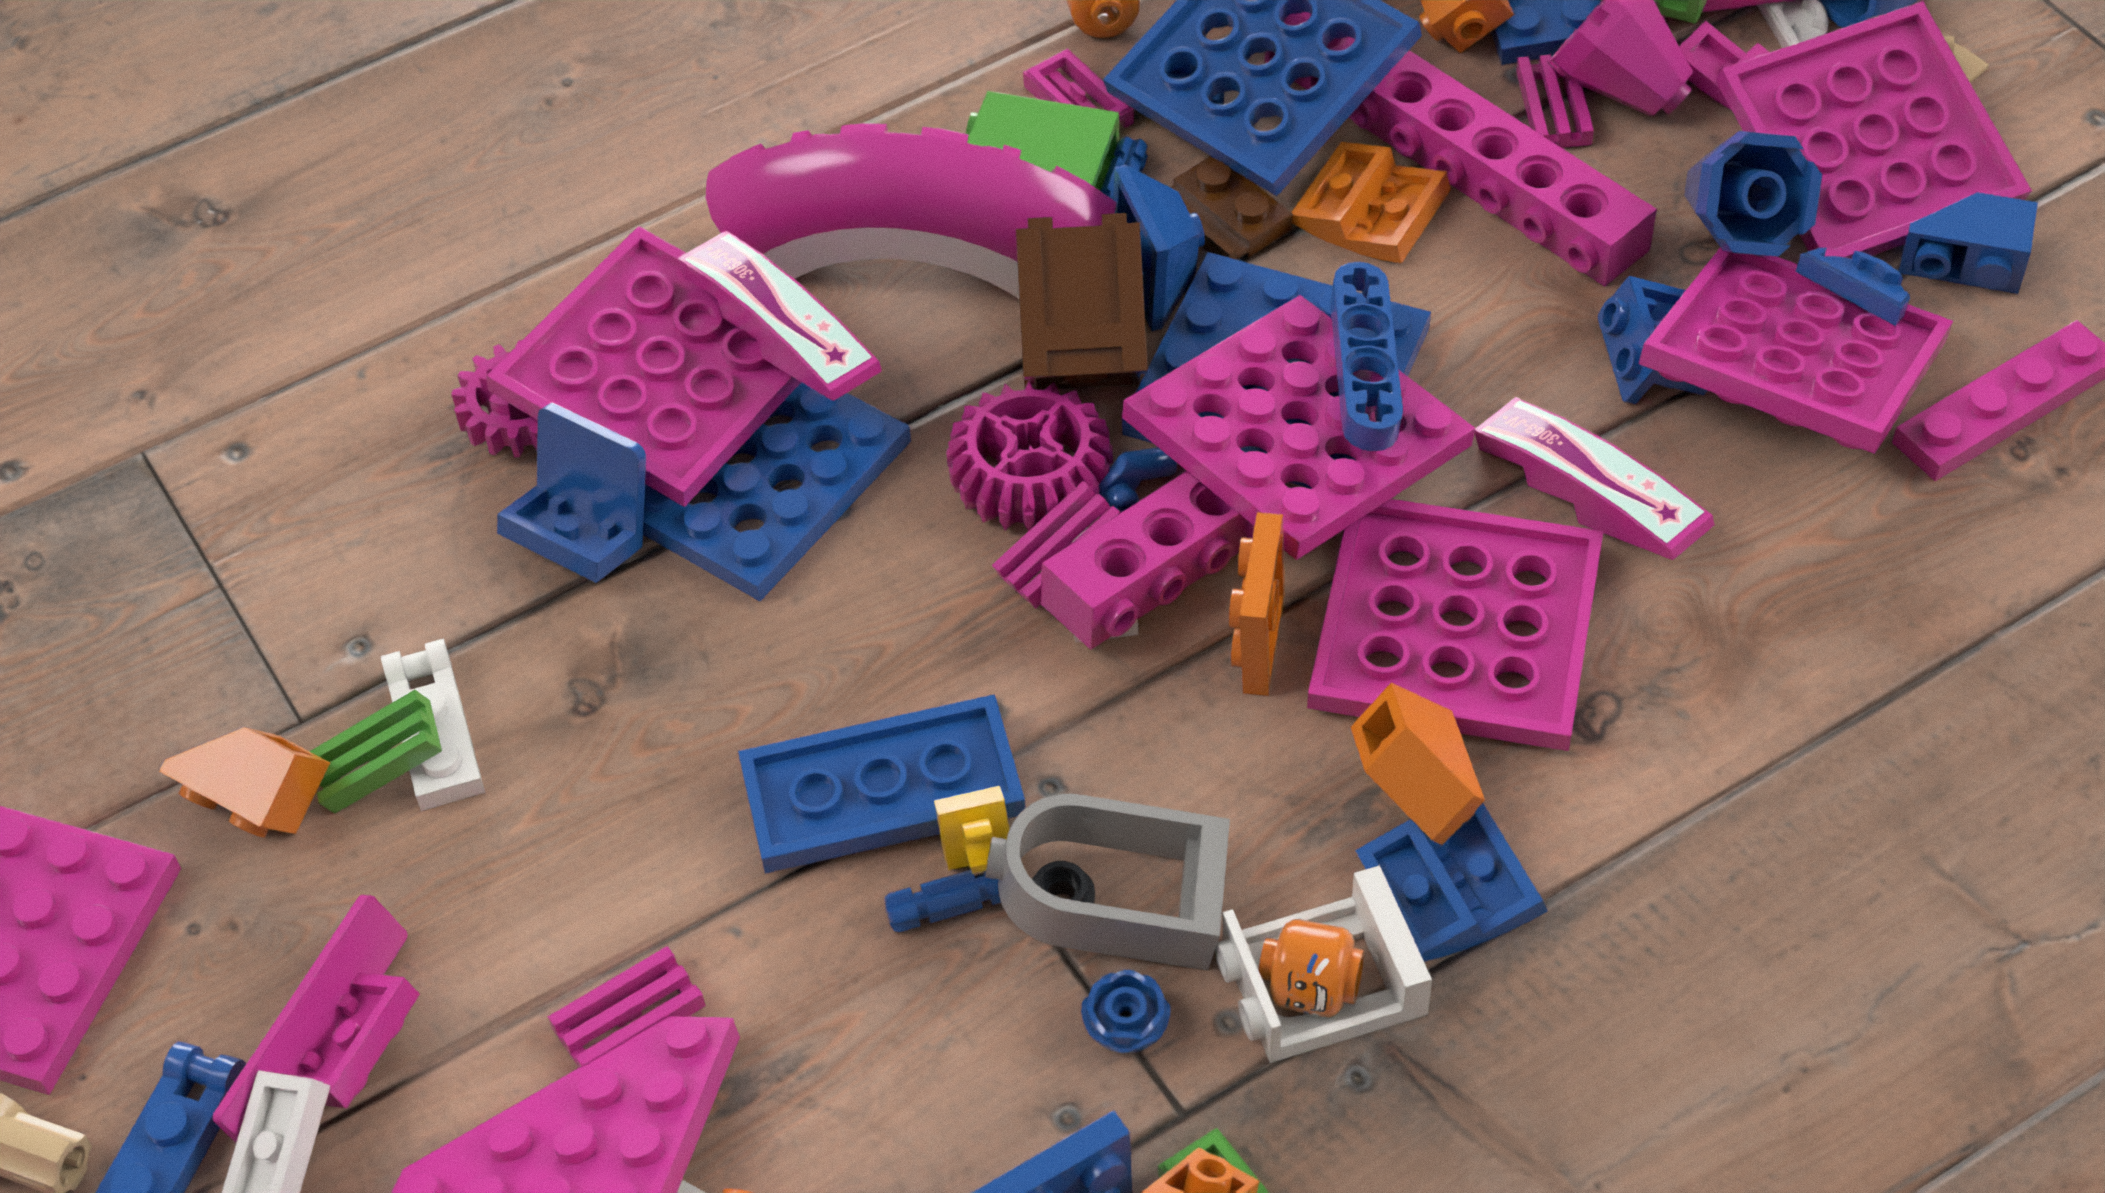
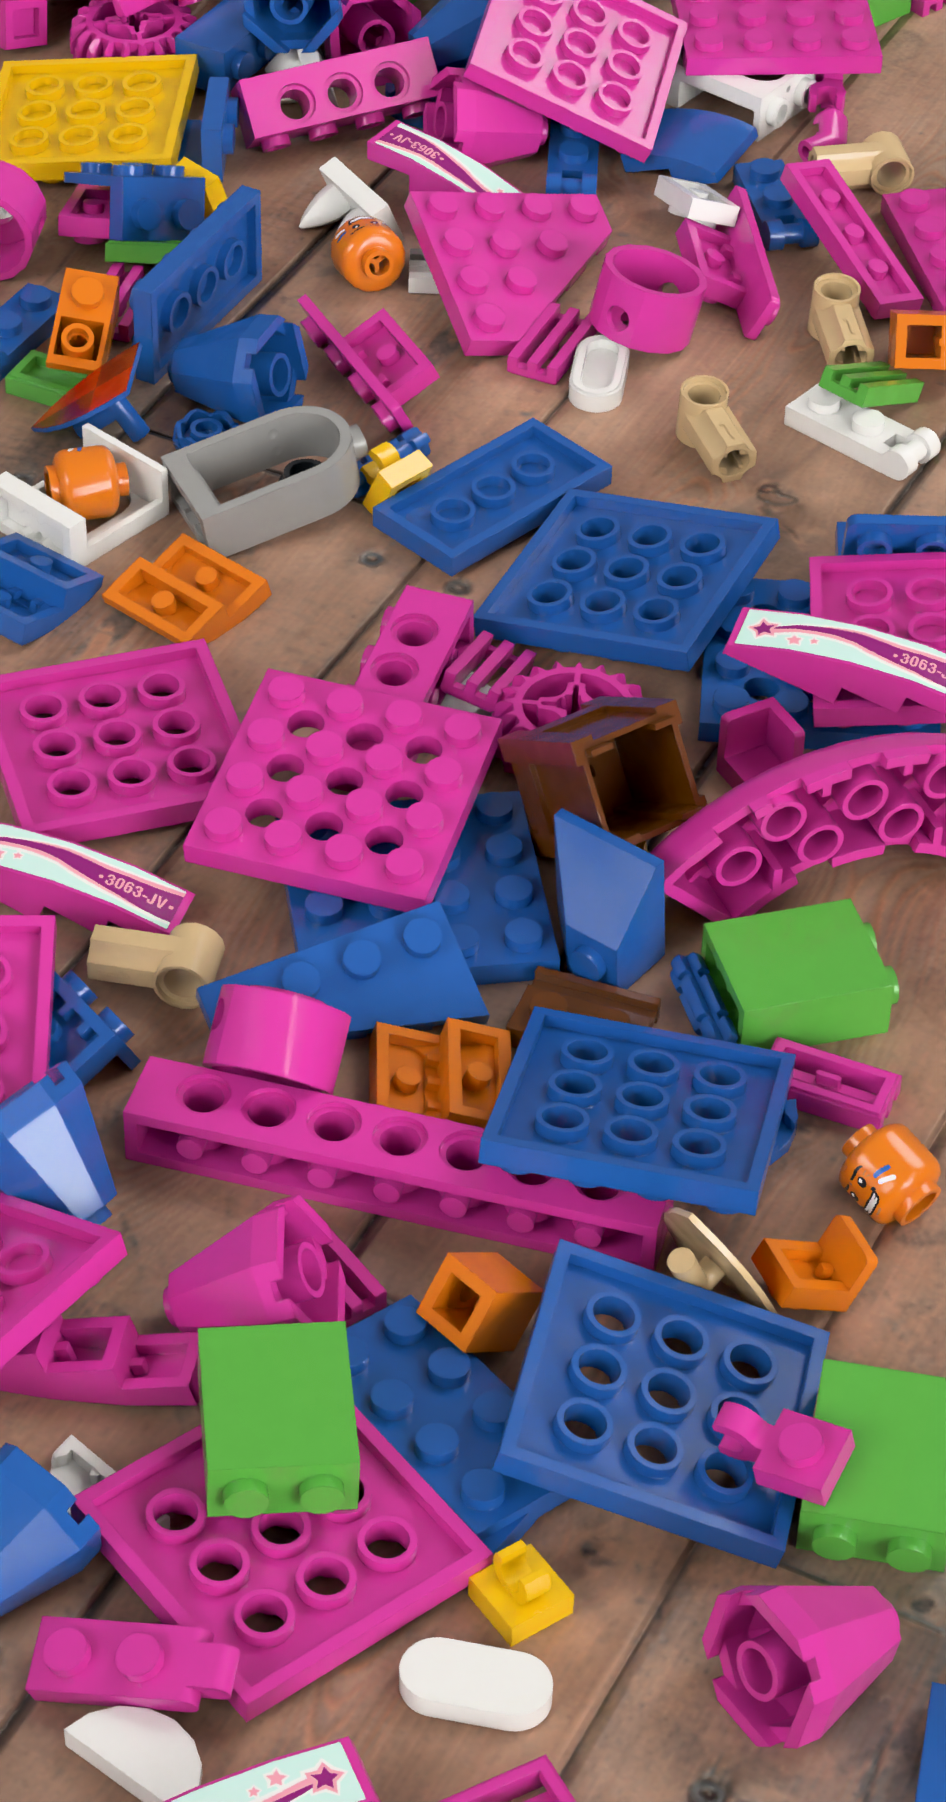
camera: 145 degrees right, 10 degrees down
(174, 982) = (851, 237): none -> dark pink plate
(304, 877) = (838, 321): none -> tan piece
(475, 949) = (632, 292): none -> dark pink piece
(587, 768) = (712, 428): none -> tan piece
(616, 937) = (598, 374): none -> white tile
(857, 1045) = (381, 360): none -> dark pink bracket
(874, 670) = (628, 579): none -> blue piece
(901, 372) = (756, 740): none -> dark pink panel
(1036, 1059) = (242, 367): none -> blue cone
(1233, 1089) = (100, 400): none -> shield
(1259, 603) = (274, 632): orange plate -> none
(1281, 796) = (188, 592): none -> orange slope
(1366, 354) = (321, 823): blue beam -> none
(1415, 281) = (389, 972): none -> blue wing
(1419, 760) = (84, 605): orange slope -> none
(1525, 186) = (277, 1037): none -> dark pink piece
(1532, 363) = (167, 963): none -> tan piece

